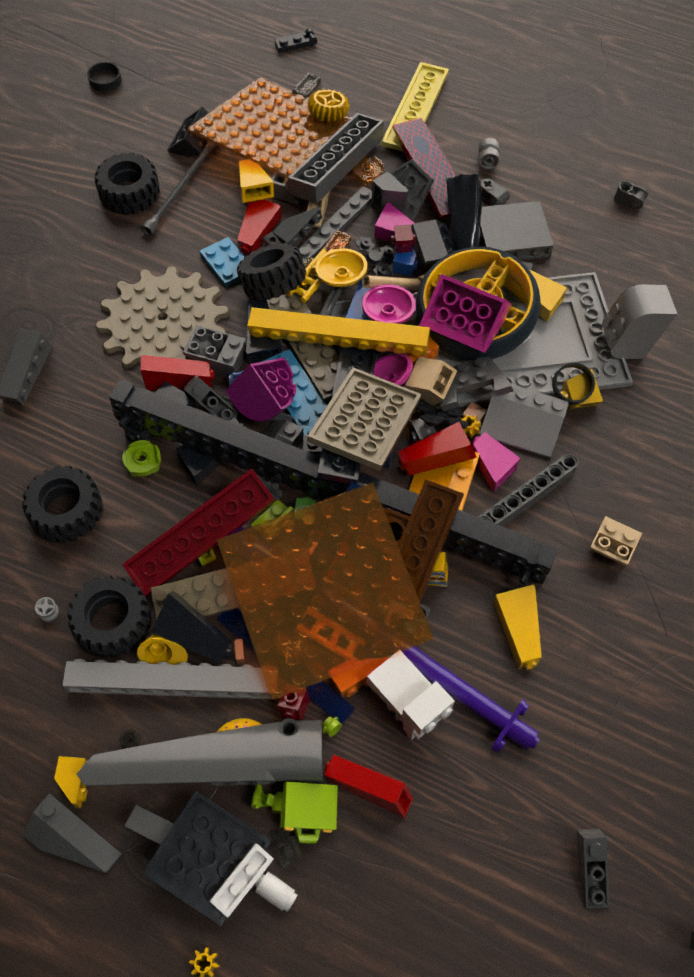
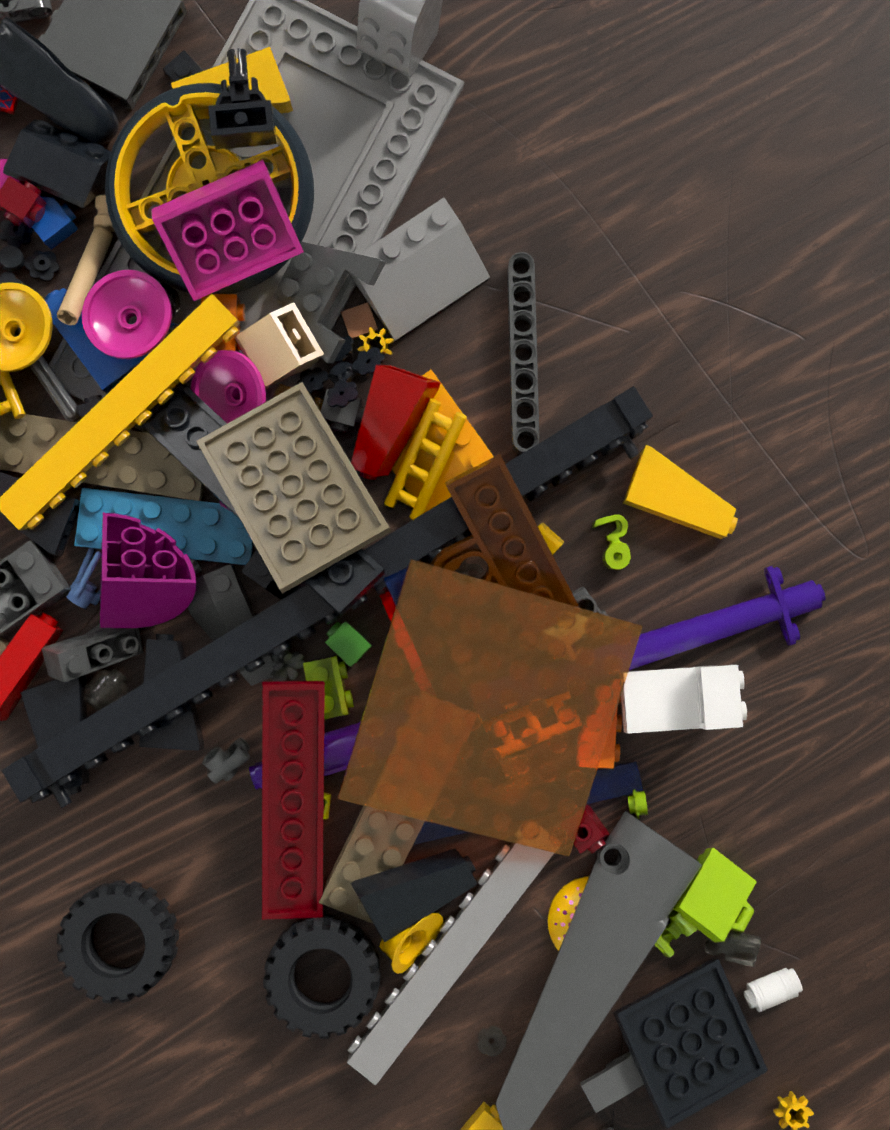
camera: 55 degrees left, 25 degrees up
(43, 606) = (249, 1048): light grey wheel -> none
(141, 468) = (100, 802): lime plate -> none
(195, 495) = (224, 764): none -> dark grey plate
(239, 652) = (476, 848): nougat tile -> none
(241, 880) = (741, 1022): white plate -> none
(369, 785) = (735, 813): red slope -> none
(438, 473) = (441, 453): none -> yellow bar
(463, 614) = (617, 553): none -> lime leg
(494, 460) = (447, 352): dark pink slope -> none
(524, 280) = (243, 114): none -> black brick
(578, 388) = (431, 163): yellow torso -> none
(586, 370) = (450, 157): black tyre -> none
(616, 541) = (662, 303): tan slope -> none

